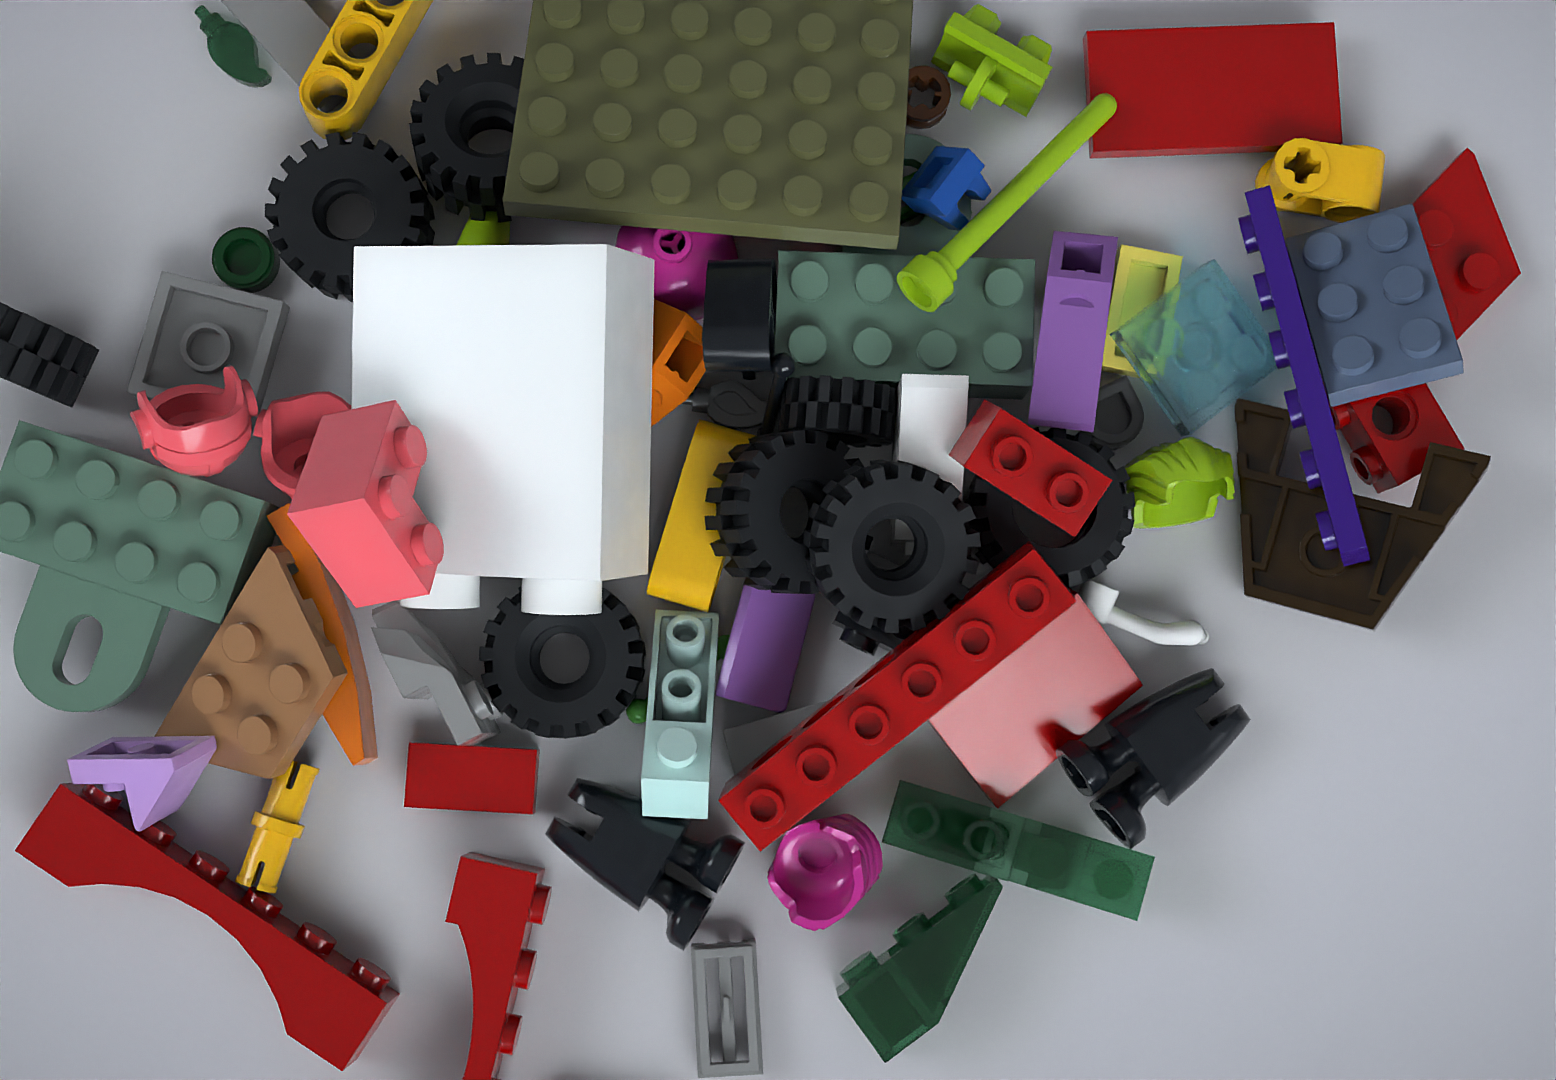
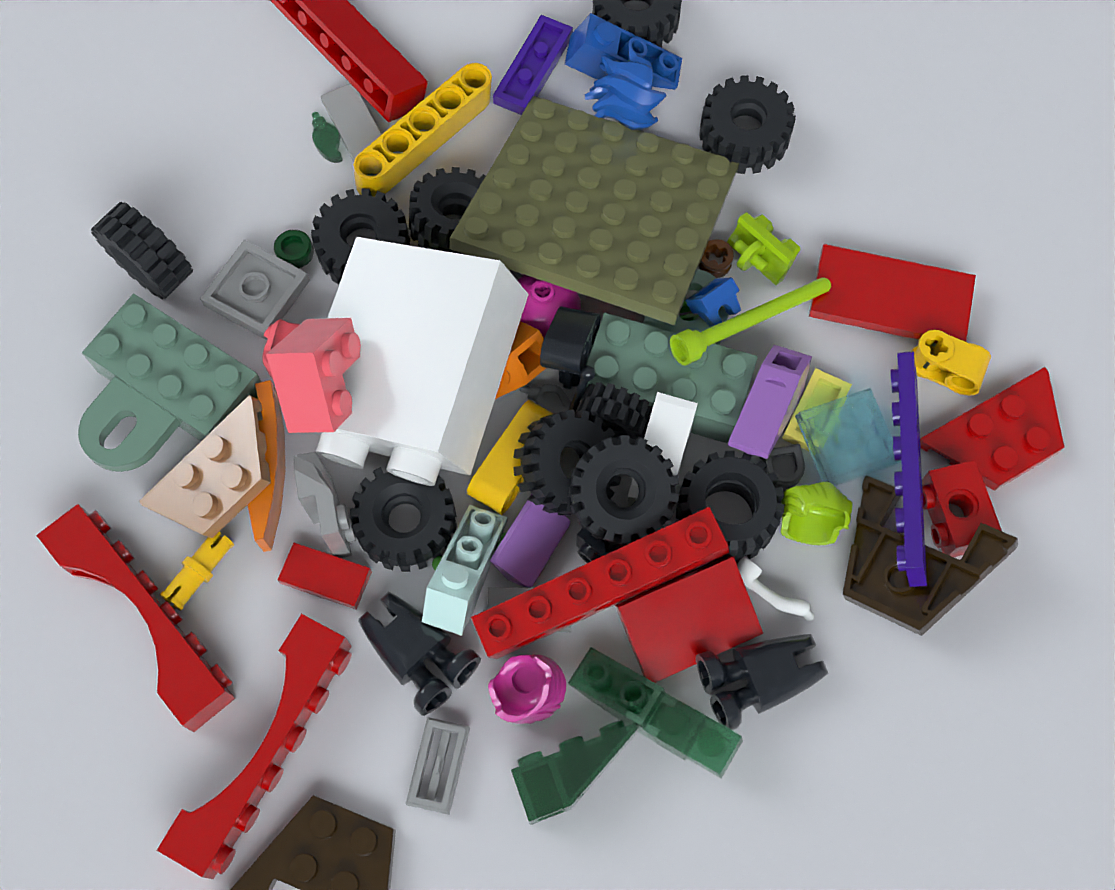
camera: 20 degrees right, 15 degrees down
(151, 769) = (134, 516): lavender slope -> none
(197, 425) = (232, 323): coral cap -> none
(1030, 467) = (721, 464): red brick -> none
(1373, 306) = (963, 437): sand blue plate -> none

